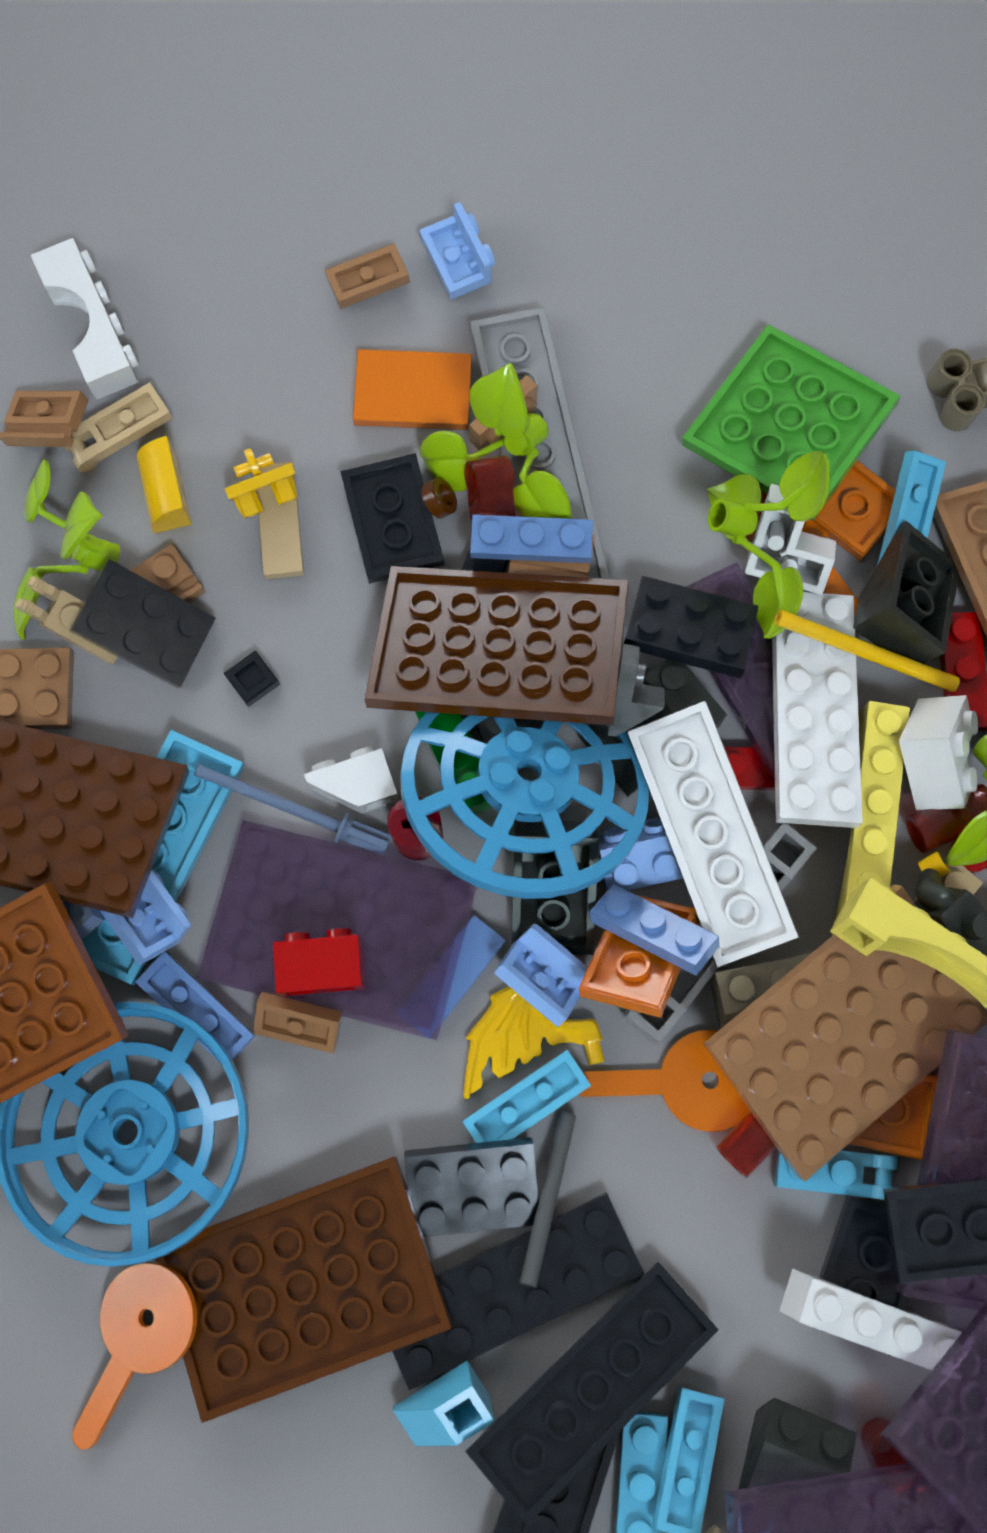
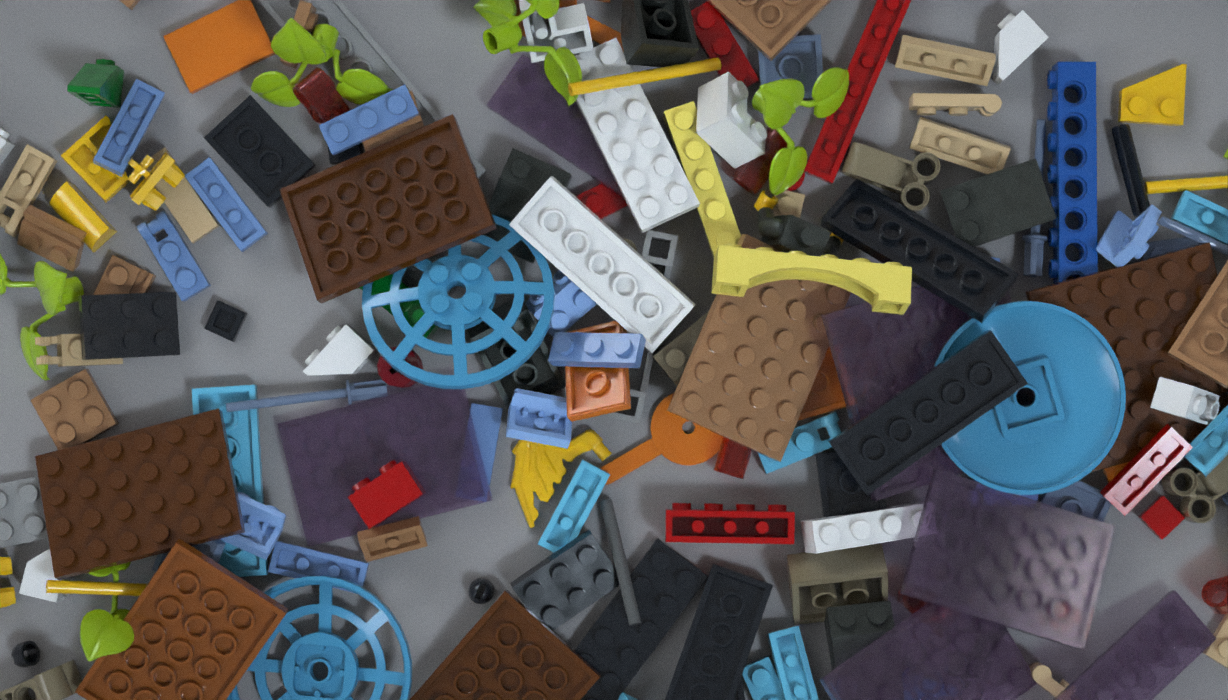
camera: 30 degrees left, 10 degrees up
(116, 490) = (51, 238): none -> medium nougat plate
(215, 438) = (81, 157): none -> yellow wing
(236, 581) = (174, 257): none -> medium blue plate
(259, 359) = (98, 84): none -> green slope
(266, 419) = (128, 127): none -> medium blue plate
(324, 554) = (226, 204): none -> medium blue plate
(372, 1148) = (487, 594): none -> black hinge
(439, 498) = (285, 119): reddish brown tile -> none
(634, 699) = (501, 199): flat silver slope -> none
(691, 627) = (513, 123): black plate -> none
(703, 1227) = (729, 526): none -> red brick
(798, 1366) = (835, 580): none -> dark tan slope

